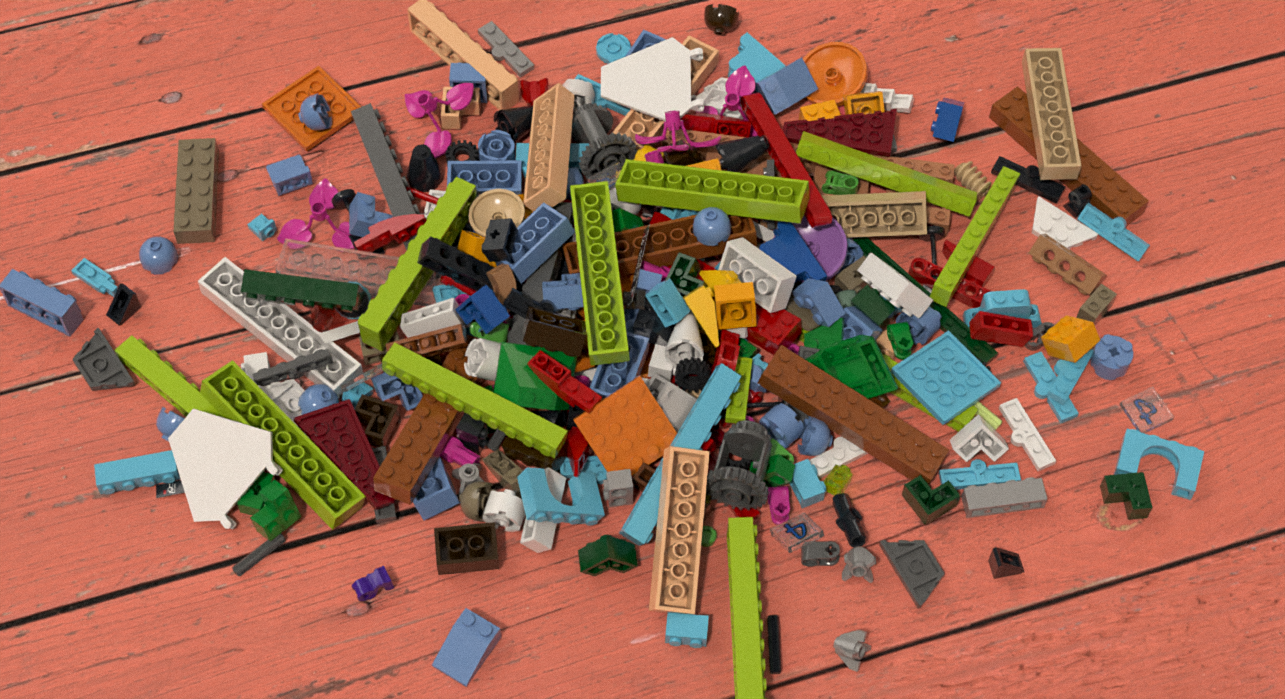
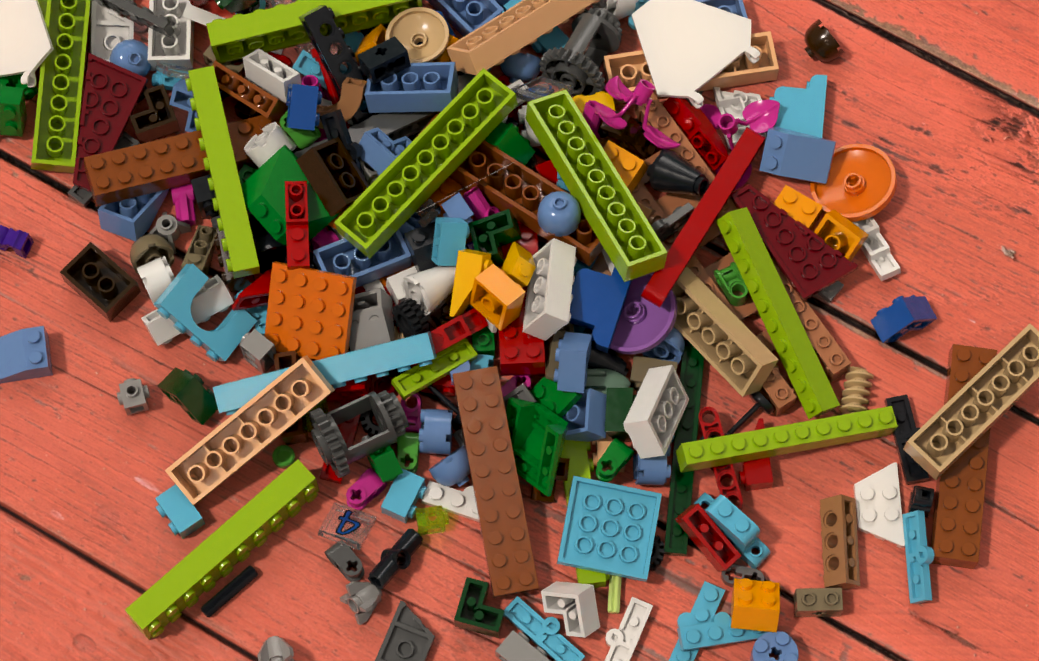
camera: 50 degrees right, 10 degrees up
(573, 593) = (133, 396): none -> light grey brick

